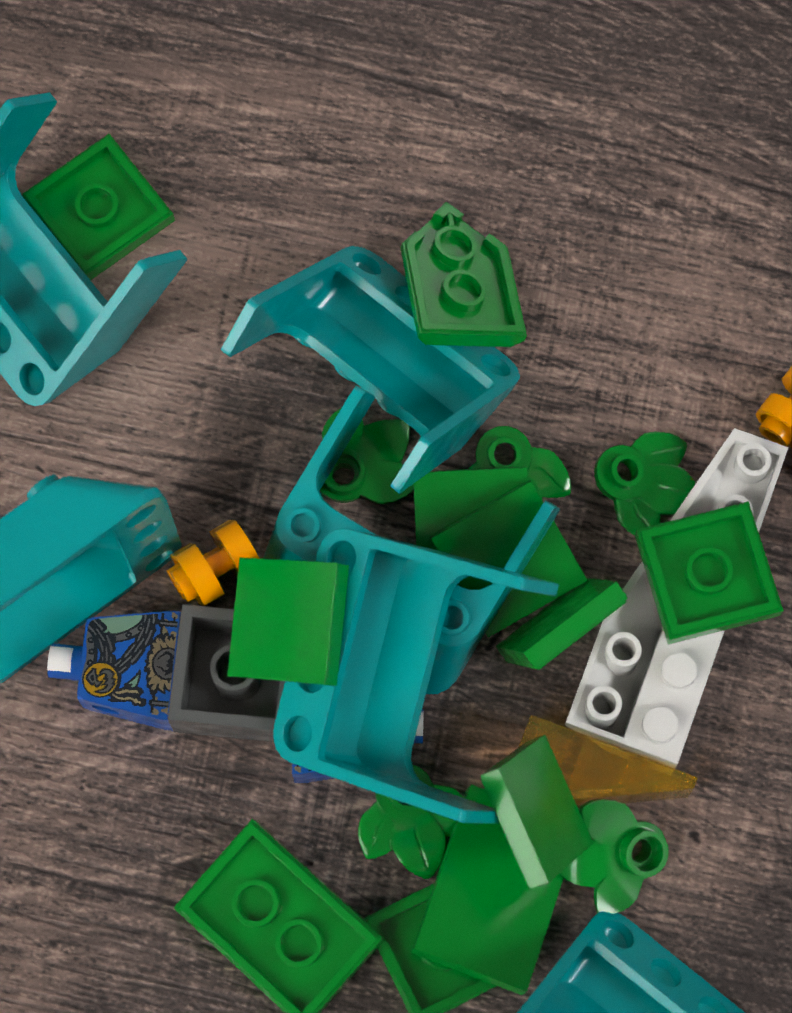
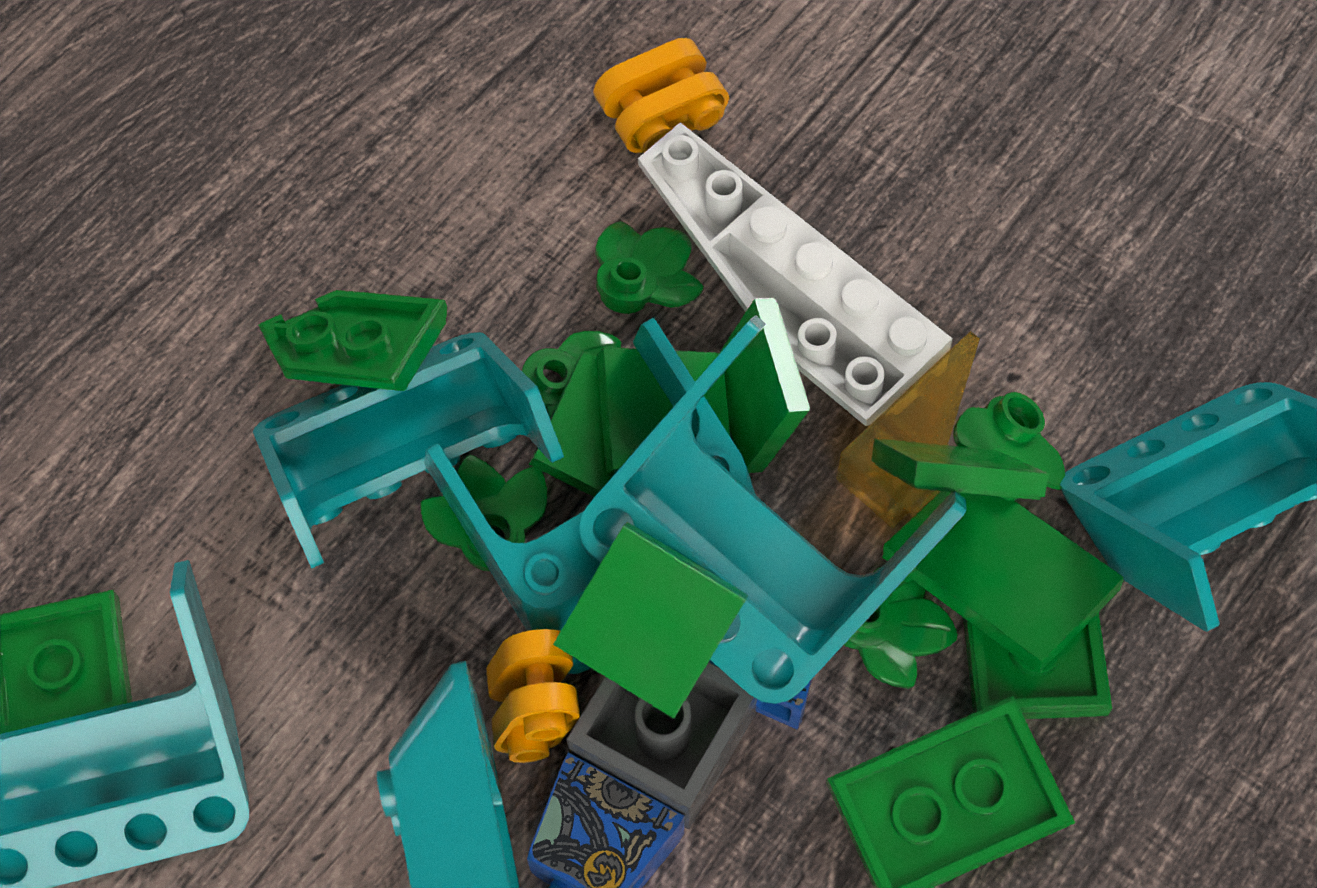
camera: 65 degrees left, 10 degrees down
(708, 573) = (776, 229): green tile -> none

